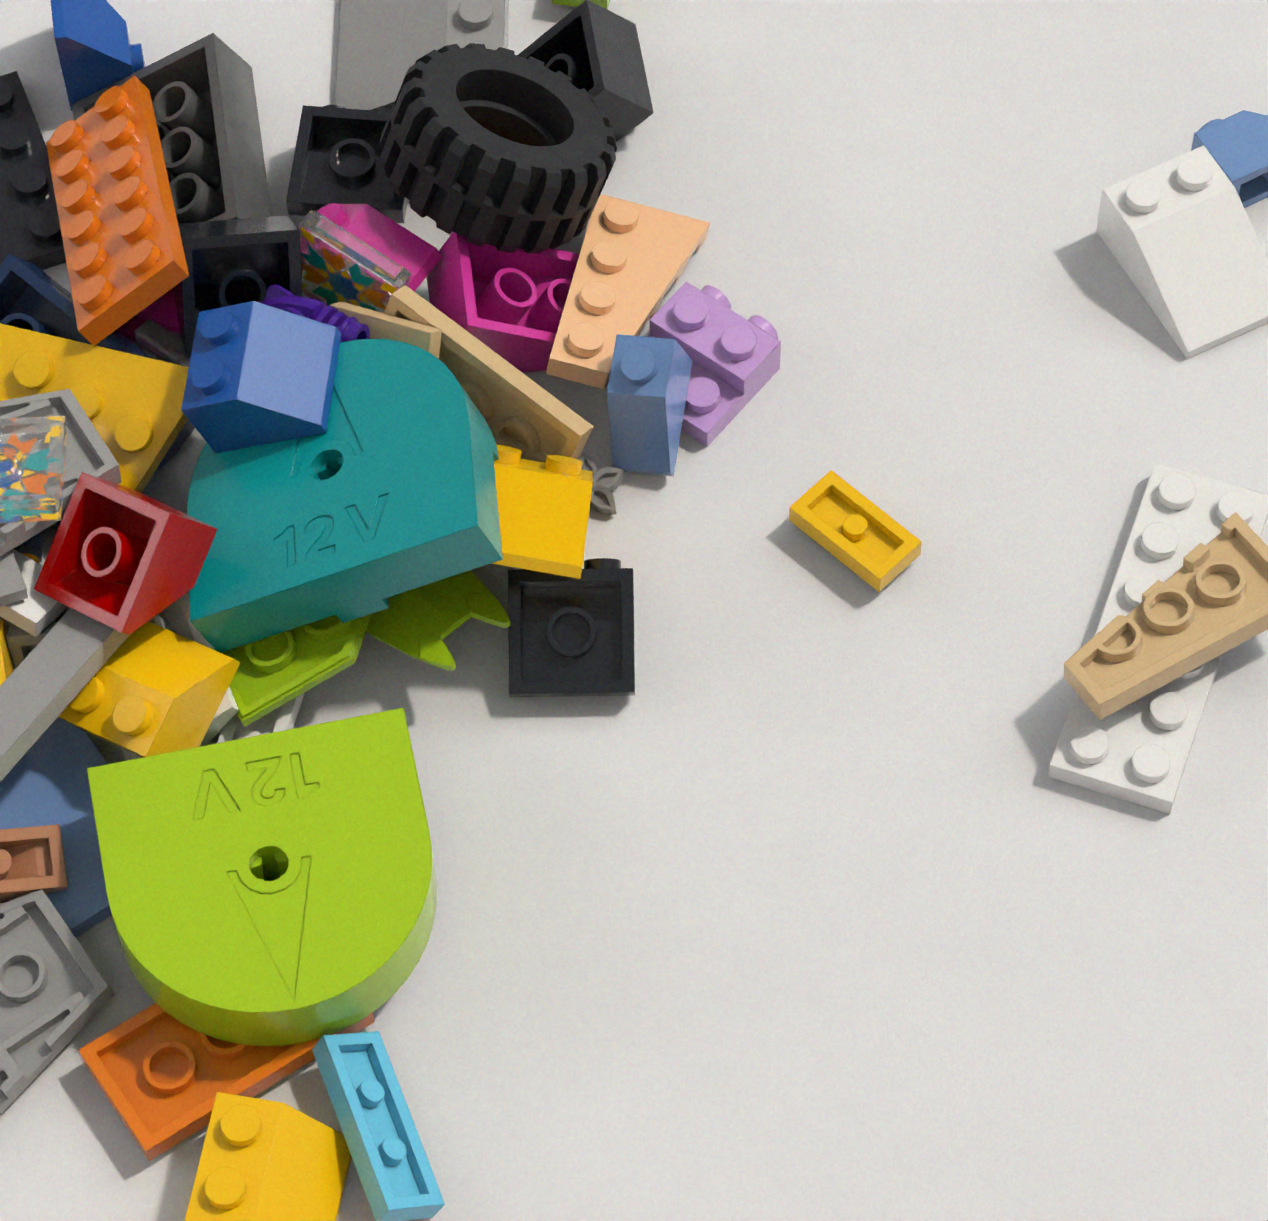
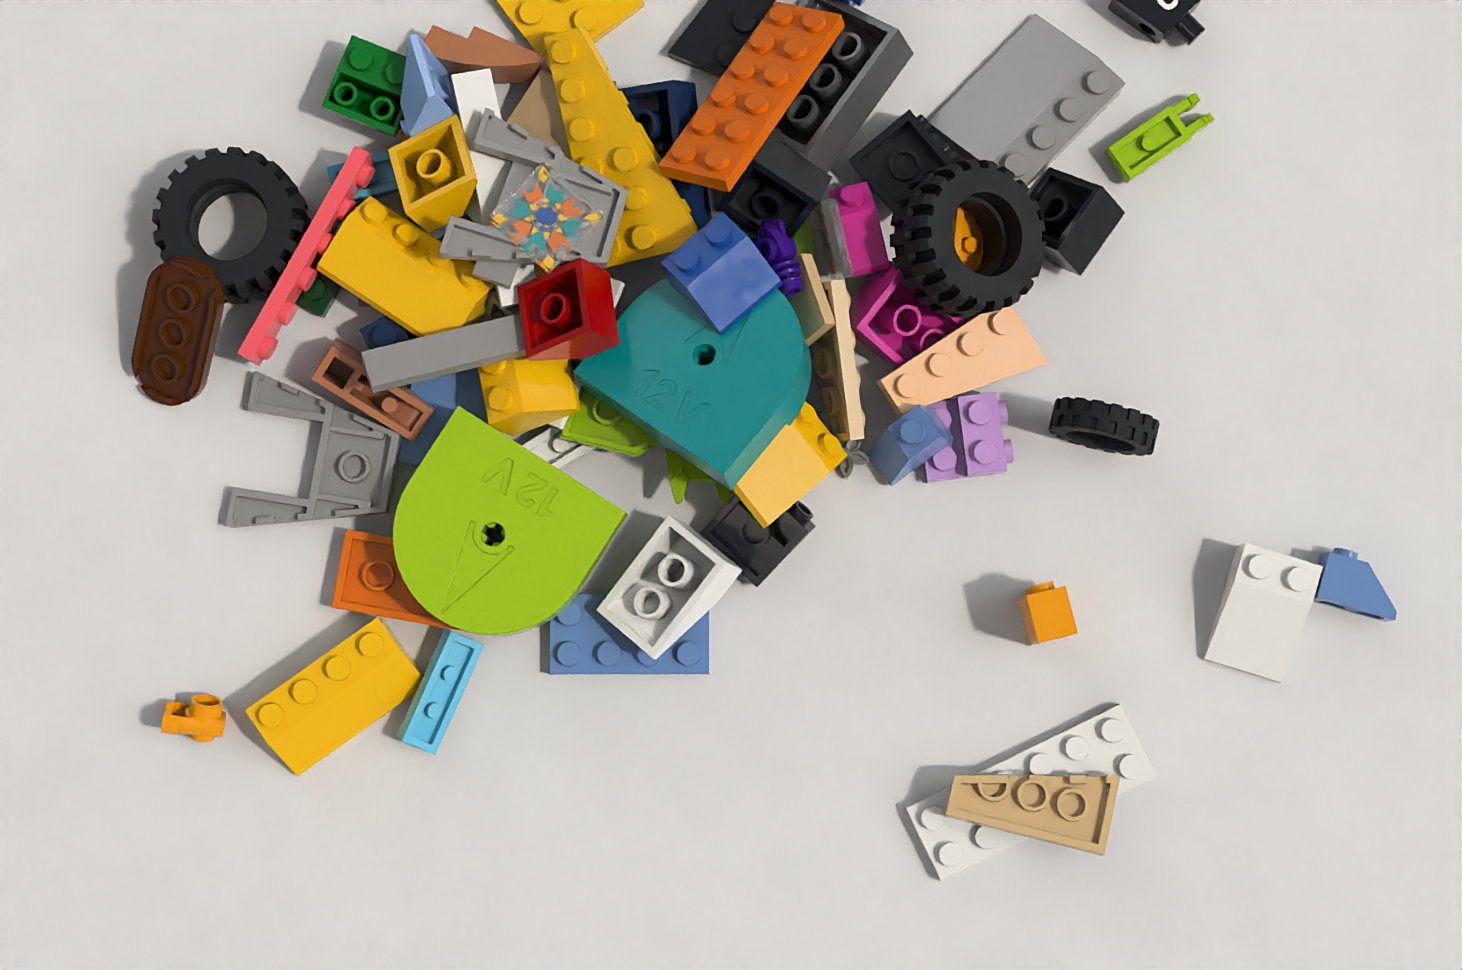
camera: 45 degrees right, 25 degrees up
(533, 757) = (668, 587): none -> white slope
(544, 873) = (590, 644): none -> medium blue plate
(815, 183) = (1104, 426): none -> black tyre
(855, 530) = (943, 601): yellow plate -> none
(980, 430) = (1046, 613): none -> light orange brick

